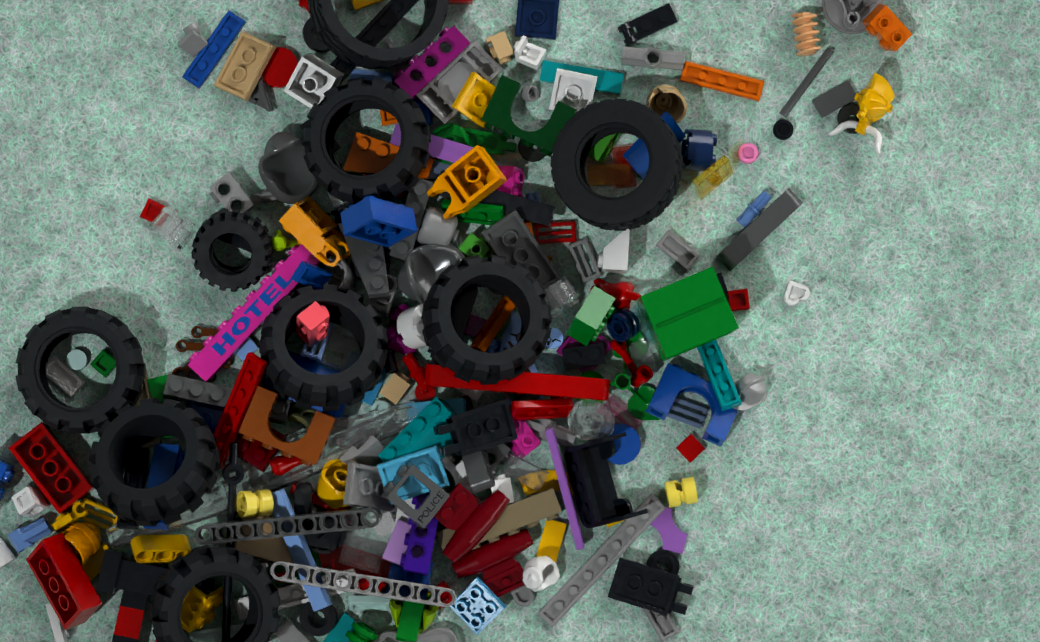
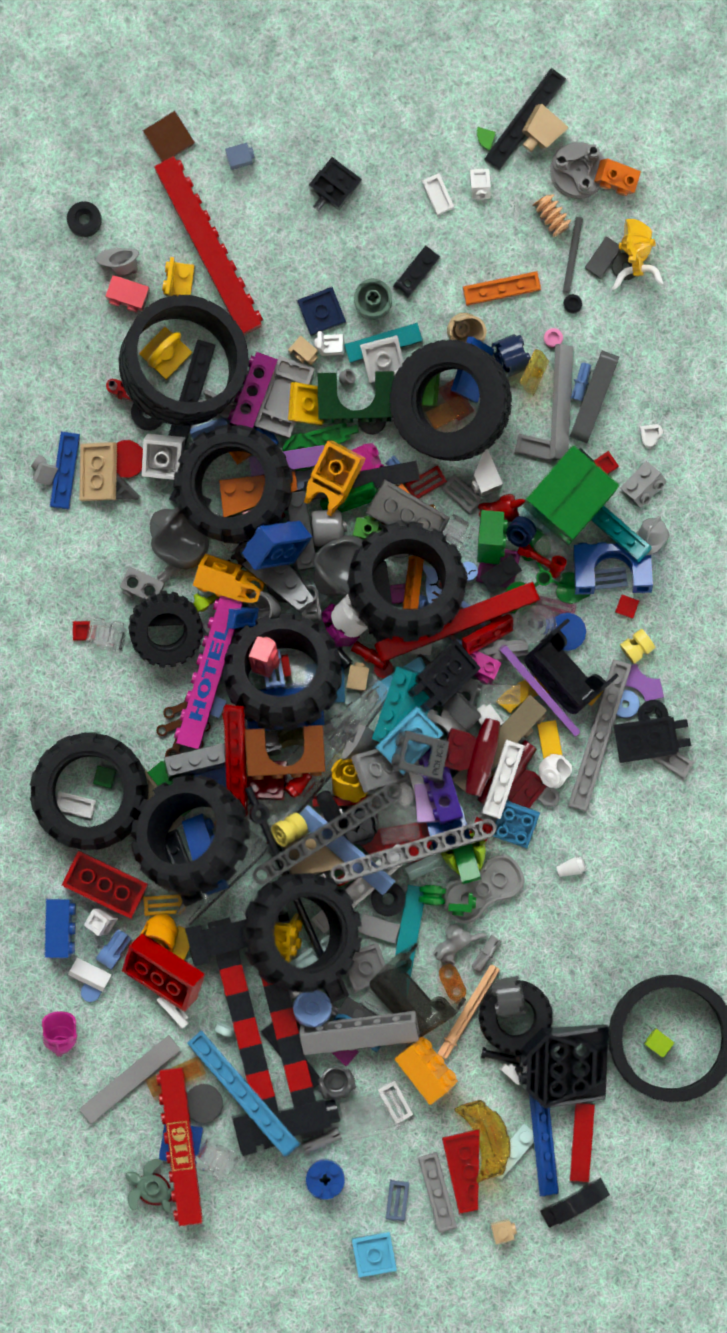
camera: 20 degrees left, 0 degrees up
(65, 519) = (137, 923): yellow plate -> none
(77, 359) = (80, 785): light aqua tile -> none
(159, 548) = (228, 906): yellow beam -> none
(331, 341) = (286, 665): none -> red tile
(485, 557) = (503, 779): none -> white tile
(603, 27) = (379, 290): none -> sand green brick
(648, 548) = (633, 707): none -> light blue piece
(666, 59) = (423, 302): light grey piece -> none
(725, 218) = (561, 401): none -> light grey tile
(765, 338) = (643, 484): none -> light grey bracket

